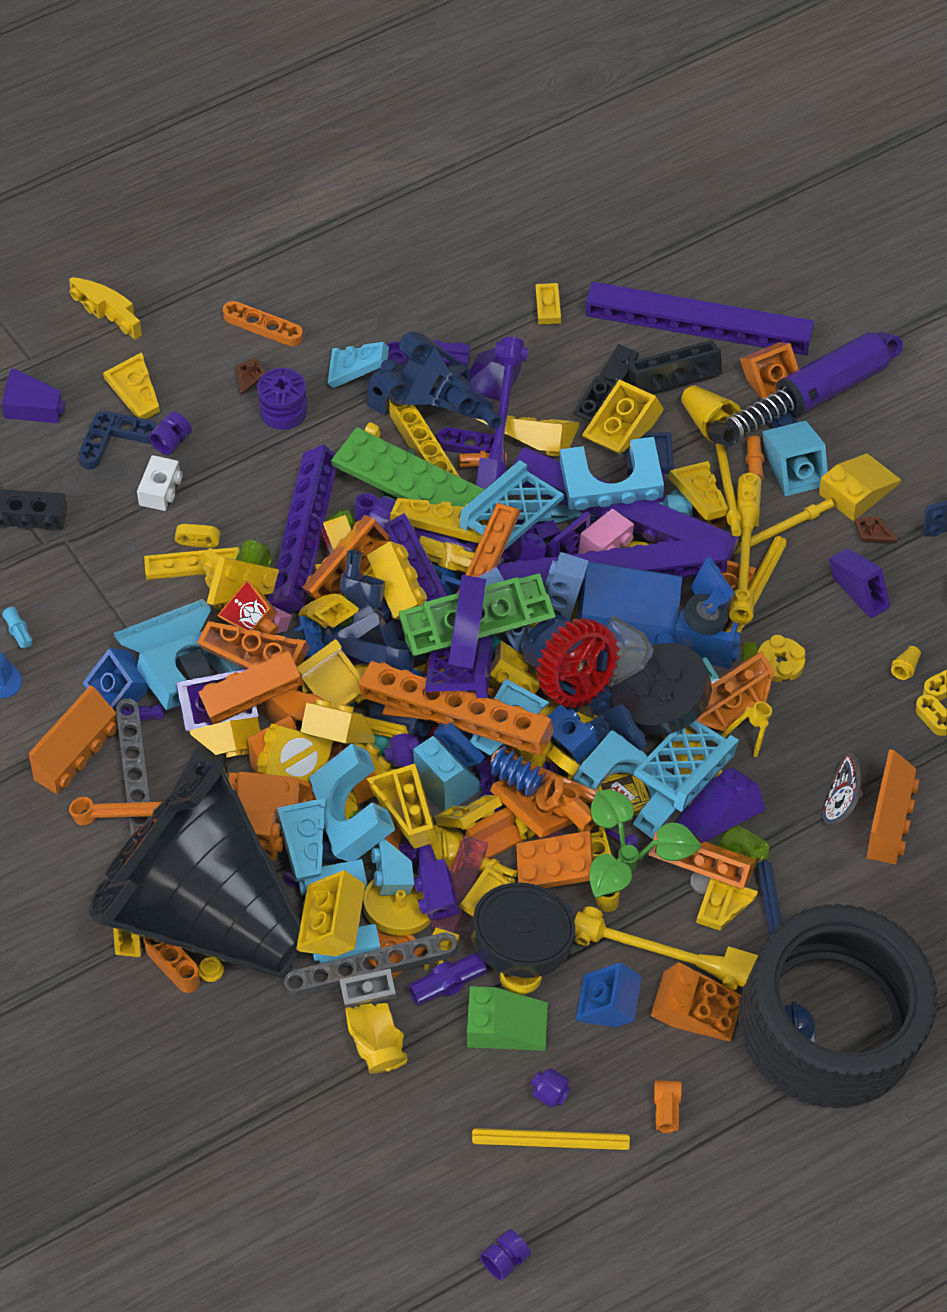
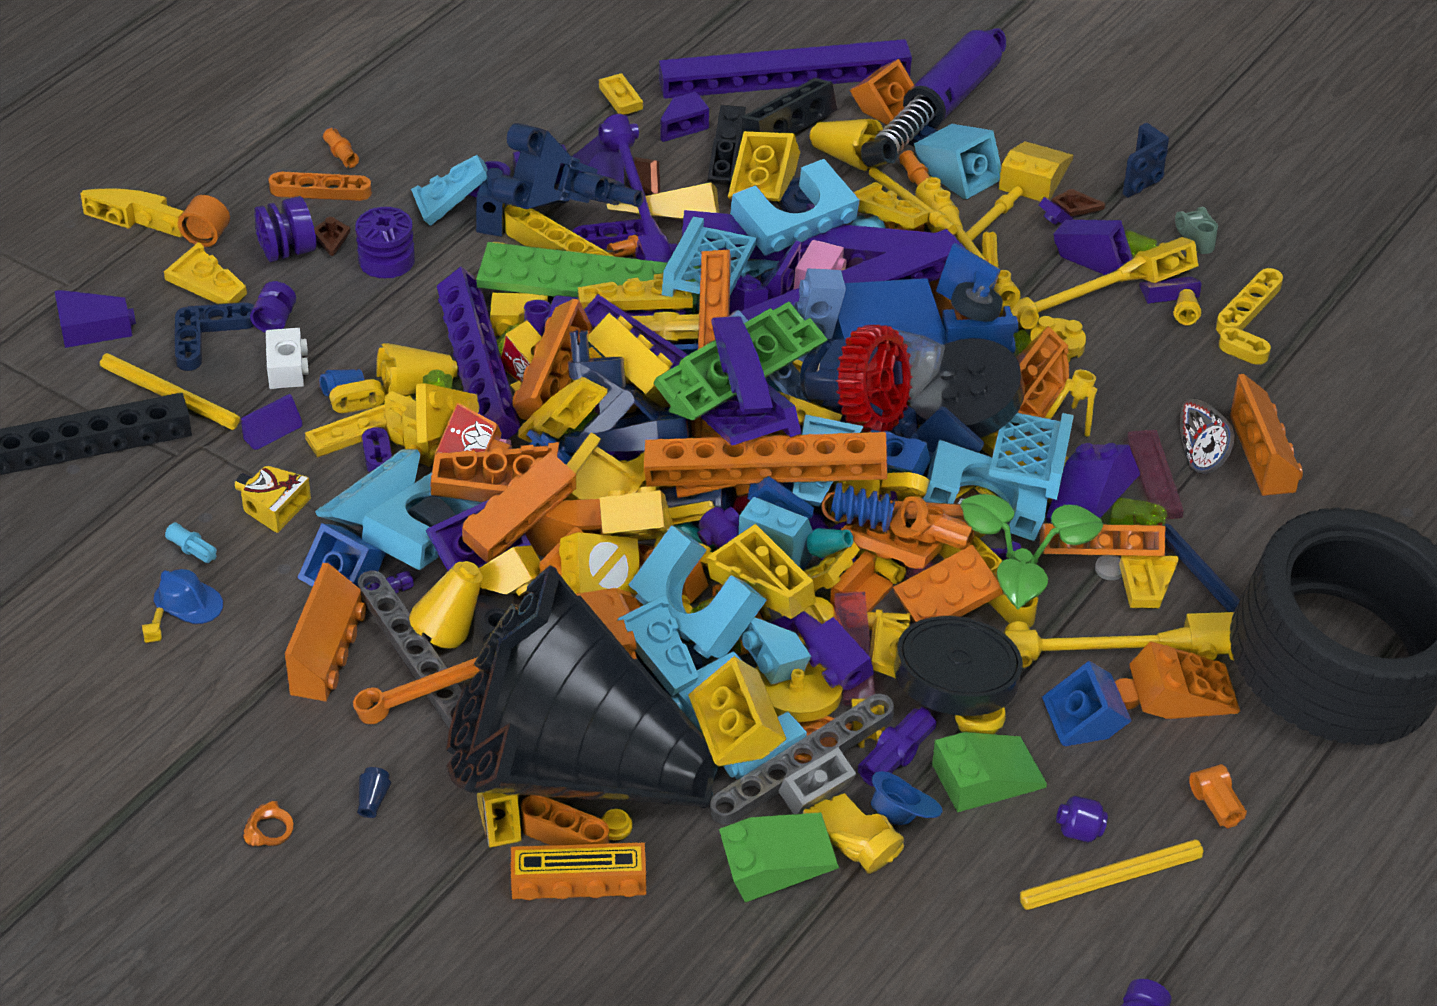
camera: 25 degrees left, 10 degrees down
(52, 881) = (372, 789): none -> dark blue cone
(61, 485) = (165, 388): none -> yellow axle
(94, 606) = (273, 495): none -> yellow torso
(123, 539) = (271, 422): none -> dark purple slope
(153, 333) = (203, 220): none -> orange piece
(164, 997) = (578, 871): none -> brick
(168, 752) = (448, 606): none -> yellow cone
(186, 588) = (373, 451): none -> dark purple beam
(192, 516) = (334, 378): none -> blue cone
(209, 362) = (279, 230): none -> dark purple wheel
(245, 523) = (405, 367): none -> yellow cone
(295, 291) = (340, 147): none -> orange pin
(308, 1034) = (777, 852): none -> bright green slope
(347, 490) = (509, 309): none -> yellow slope
(424, 1024) = (900, 800): none -> blue piece
(478, 790) = (828, 541): none -> teal cone
(526, 394) = (649, 175): none -> copper piece
(586, 343) = (684, 117): none -> dark purple slope
(648, 994) = (1128, 692): none -> orange tile
(788, 810) = (1155, 472): none -> clear pink tile
(848, 534) = (1054, 212): none -> dark purple plate
(900, 587) = (1139, 242): none -> clear neon green cone
(901, 614) = (1149, 265): none -> yellow bar
(903, 638) = (1169, 289): none -> dark purple slope

